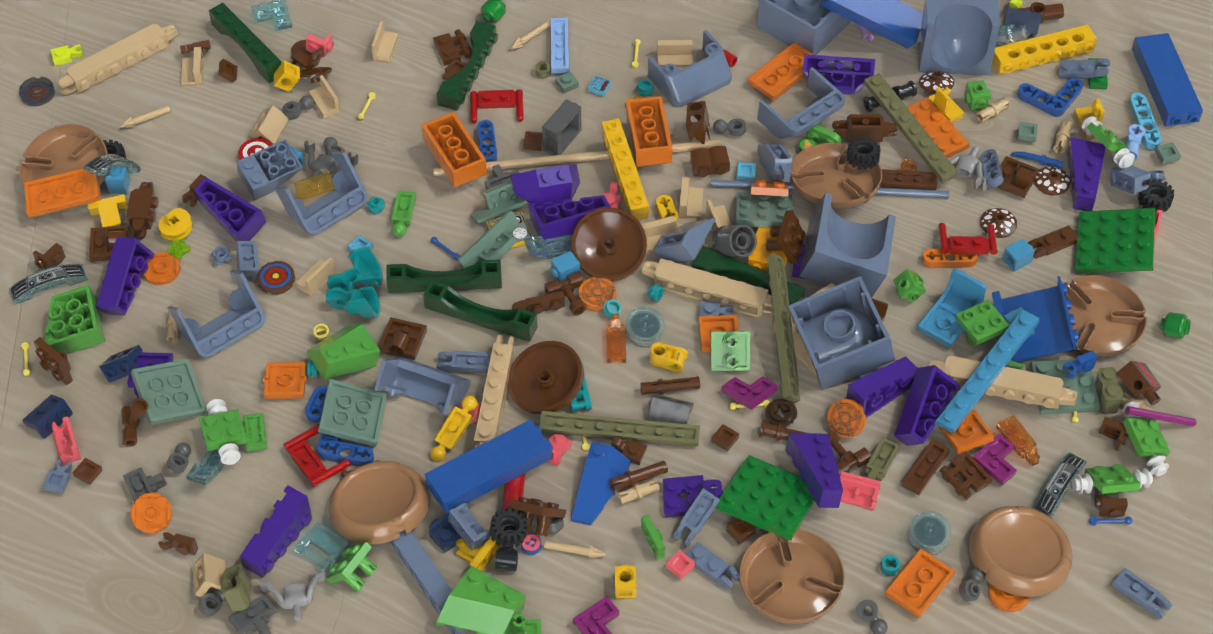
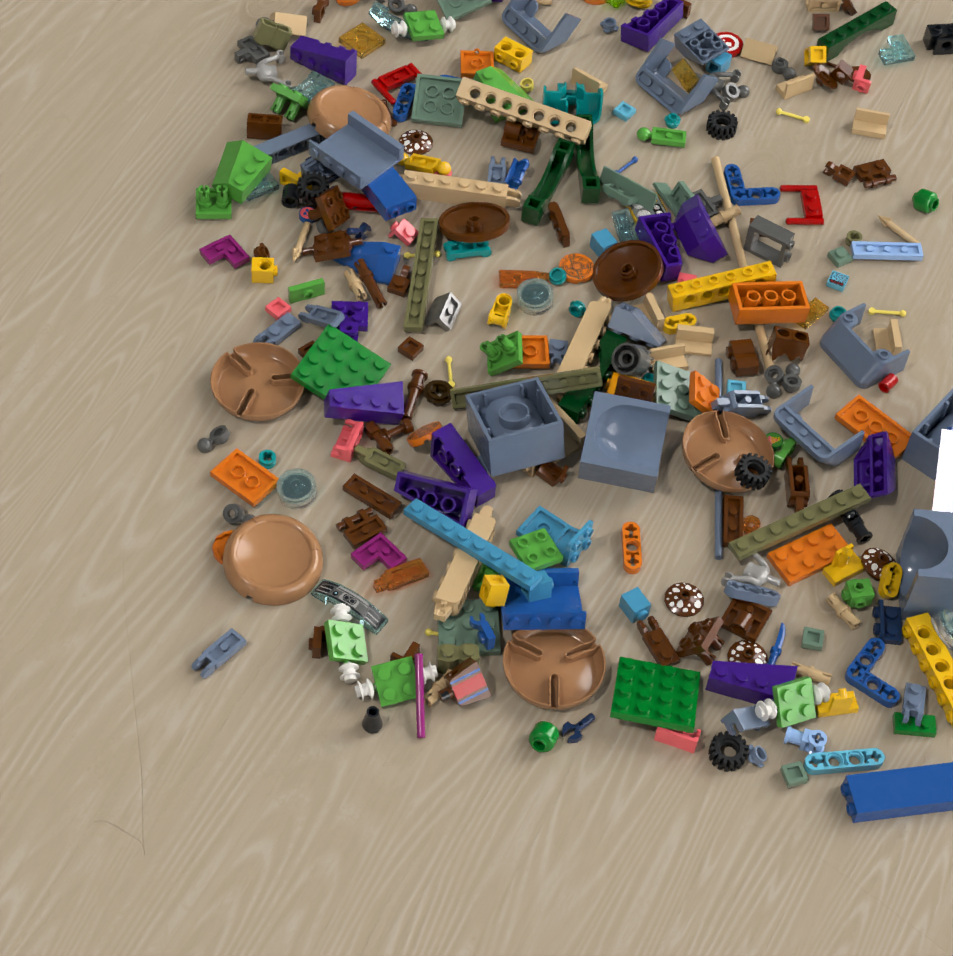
camera: 85 degrees right, 0 degrees up
(235, 500) = (362, 39): none -> clear yellow plate
(247, 258) = (601, 35): sand blue hinge -> none
(255, 432) = (425, 48): bright green plate -> none
(271, 344) = (513, 54): none -> yellow brick
(276, 277) = (587, 59): reddish brown tile -> none
(356, 372) = (469, 86): none -> tan brick
(384, 154) = (721, 118): none -> black tyre
(391, 592) = (264, 126): none -> reddish brown hinge
(409, 448) = (416, 142): none -> reddish brown dish
(422, 382) = (479, 143): sand blue windscreen -> none
(453, 90) = (881, 191): dark green arch -> none
(454, 149) = (731, 161): orange brick -> none
(458, 340) = (516, 173): none -> blue hinge
(466, 476) = (358, 151): none -> sand blue panel
(522, 163) = (726, 215): none -> tan pin
(561, 488) = (359, 232): none -> dark blue bar
(567, 287) = (580, 245): reddish brown bar -> none
(586, 513) = (332, 246): none -> reddish brown plate
(598, 585) = (261, 251): none -> reddish brown plate
(661, 386) = (466, 294): reddish brown pin -> none
(745, 143) = (773, 390): none -> dark grey plate
(750, 395) = (458, 367): magenta plate -> none
(909, 285) = (587, 502): bright green brick -> none
(956, 73) = (890, 580): none -> yellow beam
(966, 244) = (644, 560): red plate -> none
(970, 433) = (407, 533): orange plate -> none
(1001, 81) = (888, 623): none -> dark blue bracket
(1038, 353) = (494, 590): none -> yellow brick
(1050, 205) = (699, 638): none -> reddish brown plate
(1093, 520) = (306, 629): blue hinge -> none
(1157, 305) = (576, 728): none -> dark blue bar
(1191, 457) = (372, 720): none -> black cone

